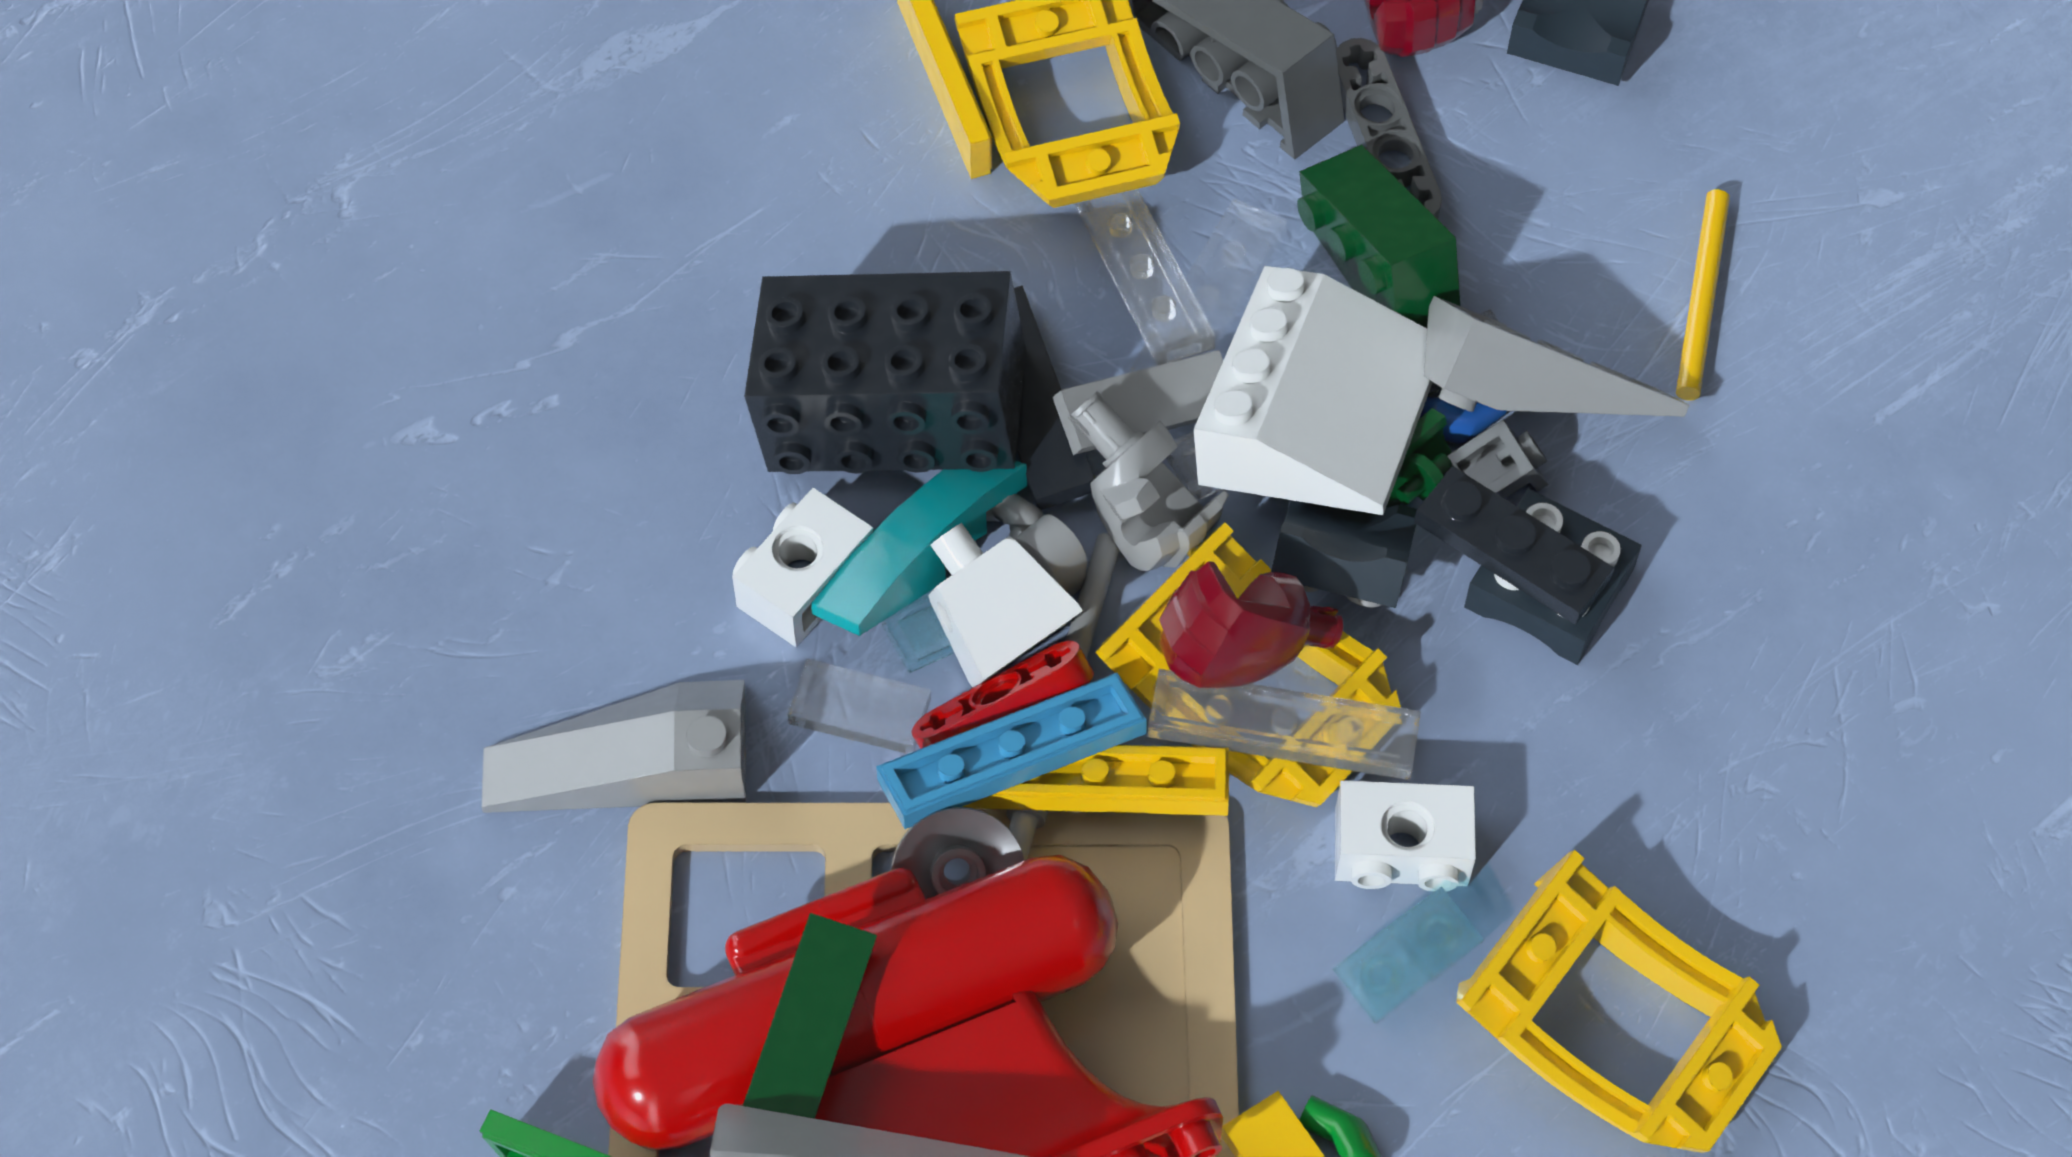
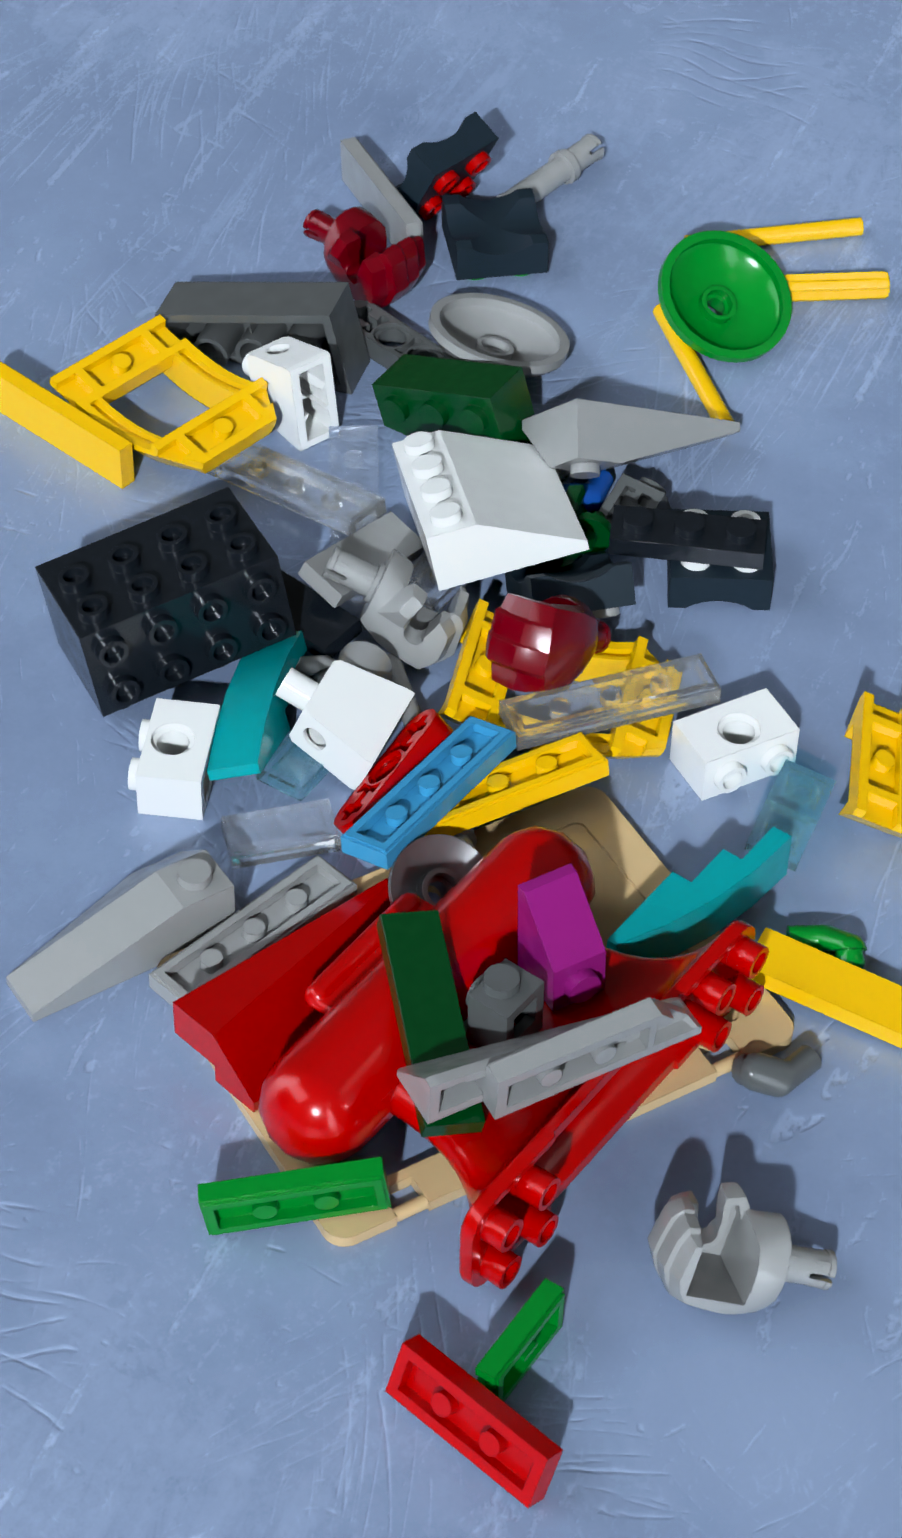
camera: 30 degrees left, 15 degrees down
(671, 927) = (259, 1006): none -> red wedge
(747, 825) = (265, 920): none -> light grey tile
(879, 1074) = (500, 999): none -> dark grey brick
(984, 1035) = (560, 938): none -> magenta slope
(1196, 1031) = (688, 912): none -> teal slope
(1216, 113) = (298, 387): none -> white torso
(1487, 162) = (498, 332): none -> light grey dish
(1824, 211) = (735, 281): none -> green dish
(1903, 234) = (838, 286): none -> yellow axle
(1925, 144) = (802, 231): none -> yellow bar

